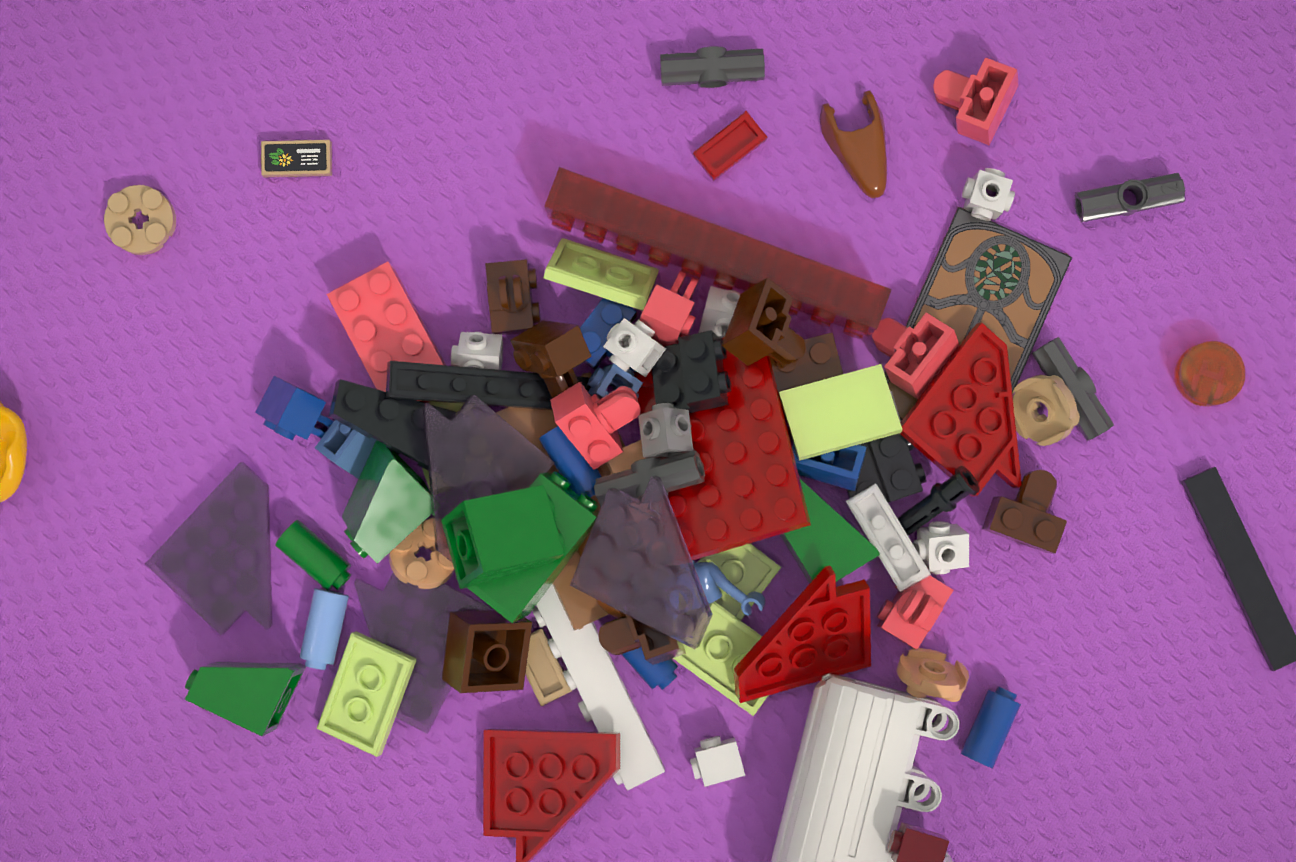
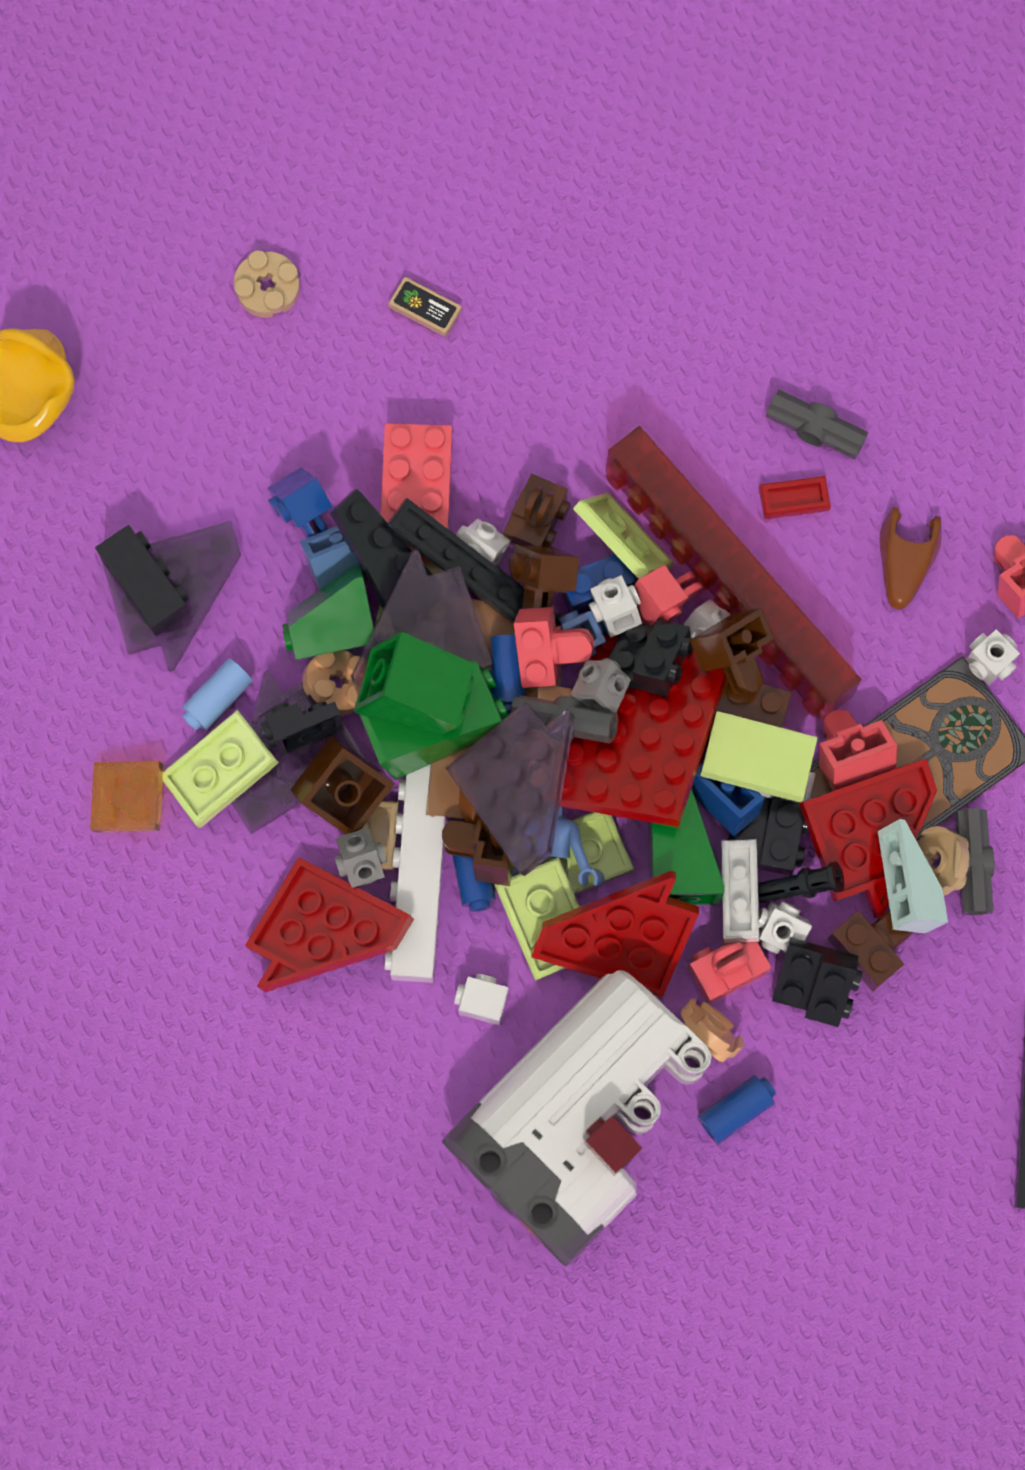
camera: 30 degrees right, 10 degrees down
(195, 564) = (143, 579): none -> black brick
(245, 692) = (124, 706): green slope -> none
(299, 764) = (126, 796): none -> clear yellow plate
(314, 556) = (244, 632): green brick -> none
(409, 625) = (291, 730): none -> black plate
(546, 707) = (360, 858): none -> light grey brick
(1000, 577) = (818, 981): none -> black plate
(1034, 446) = (911, 885): none -> light aqua slope

